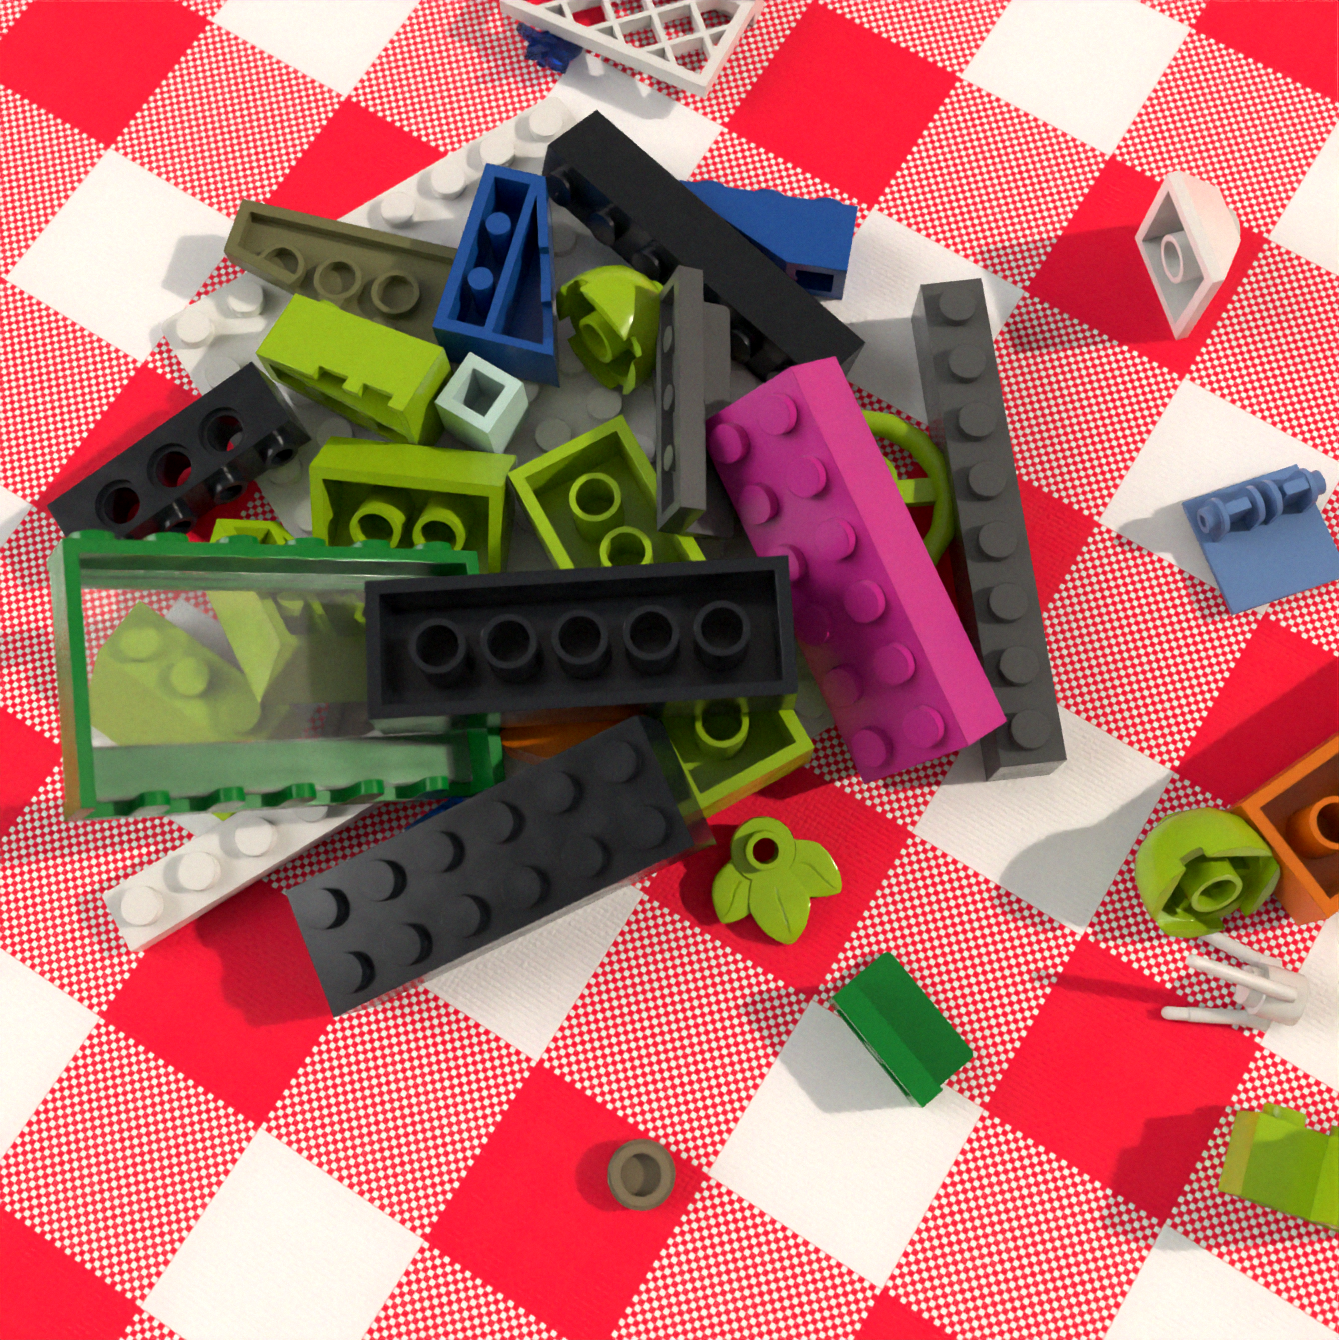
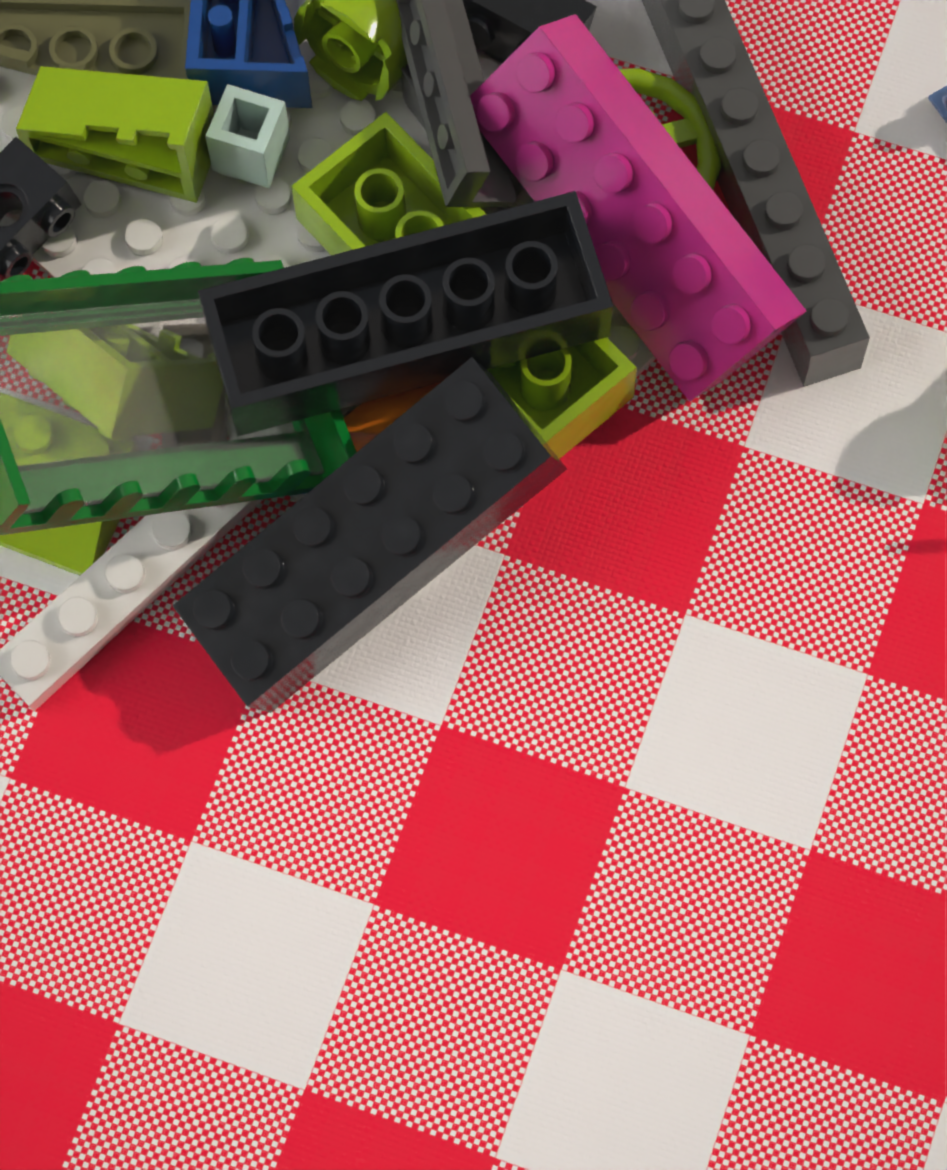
camera: 15 degrees left, 5 degrees down
(414, 497) = (202, 224): lime slope -> none
(641, 1174) = (564, 797): dark tan tile -> none
(776, 888) = (631, 518): lime plate -> none
(901, 1029) = (772, 618): green panel -> none

